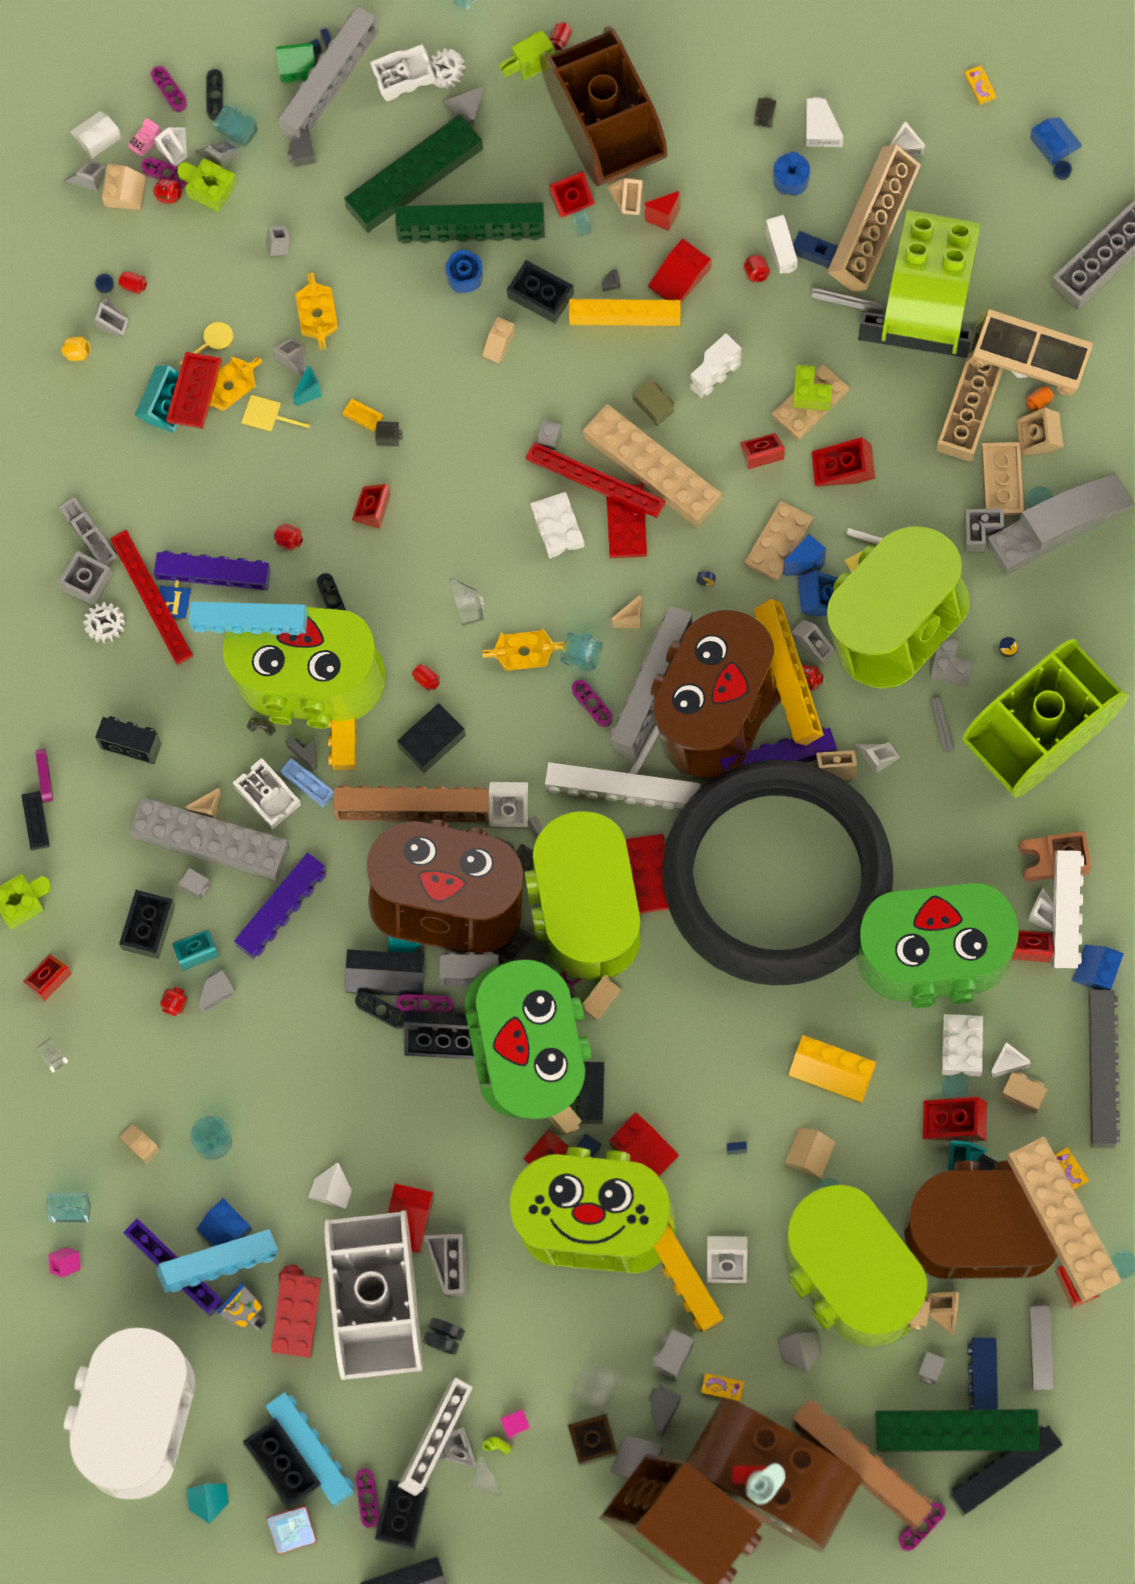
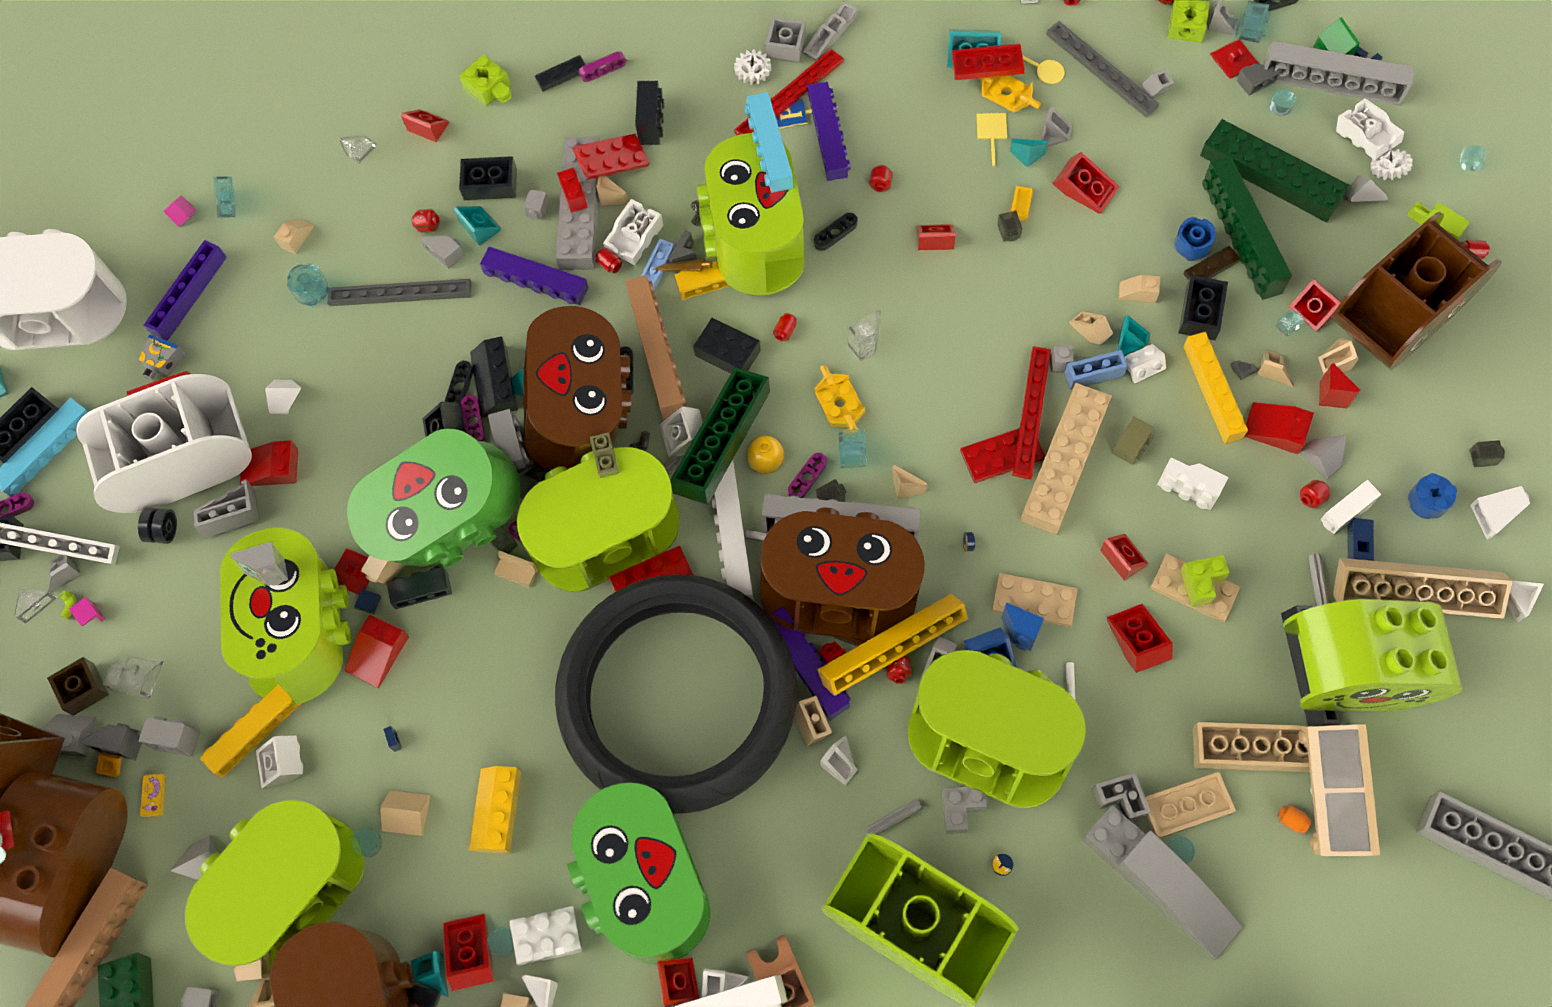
camera: 75 degrees right, 5 degrees down
(170, 791) = (610, 156): none -> red plate
(207, 835) = (572, 190): none -> red brick
(217, 1261) = (189, 317): medium azure brick -> none
(223, 1224) = (234, 322): blue slope -> none
(235, 286) = (1102, 69): none -> dark grey plate
(248, 1048) = (399, 292): none -> dark grey tile
(268, 159) = (1233, 58): none -> red piece
(289, 827) = (608, 260): none -> red brick
(314, 298) = (1114, 128): yellow plate -> none
(327, 749) = (690, 265): none -> pearl gold bar
(338, 136) = (1282, 102): none -> clear light blue piece
(364, 348) = (1086, 183): none -> red slope
(494, 267) = (1214, 264): none -> dark brown plate
(524, 396) = (1092, 327): none -> tan slope
(531, 762) = (720, 436): none -> dark green brick
(539, 862) = (604, 455): none -> olive slope
(547, 367) = (1132, 336): none -> teal slope
(556, 735) = (765, 454): none -> yellow cylinder
(557, 524) = (973, 391): white piece -> none
(558, 1197) = (262, 564): none -> light grey slope
(572, 408) = (1096, 369): none -> medium blue brick
(576, 364) = (1145, 363): none -> white bracket
(618, 254) = (1273, 368): none -> tan slope
(619, 685) = (831, 490): none -> clear smoke brick
(680, 1423) = (109, 764): none -> light orange plate
(720, 244) = (1325, 454): none -> light grey slope
(778, 729) = (831, 651): none -> red brick
(1040, 432) = (1256, 830): tan slope -> none

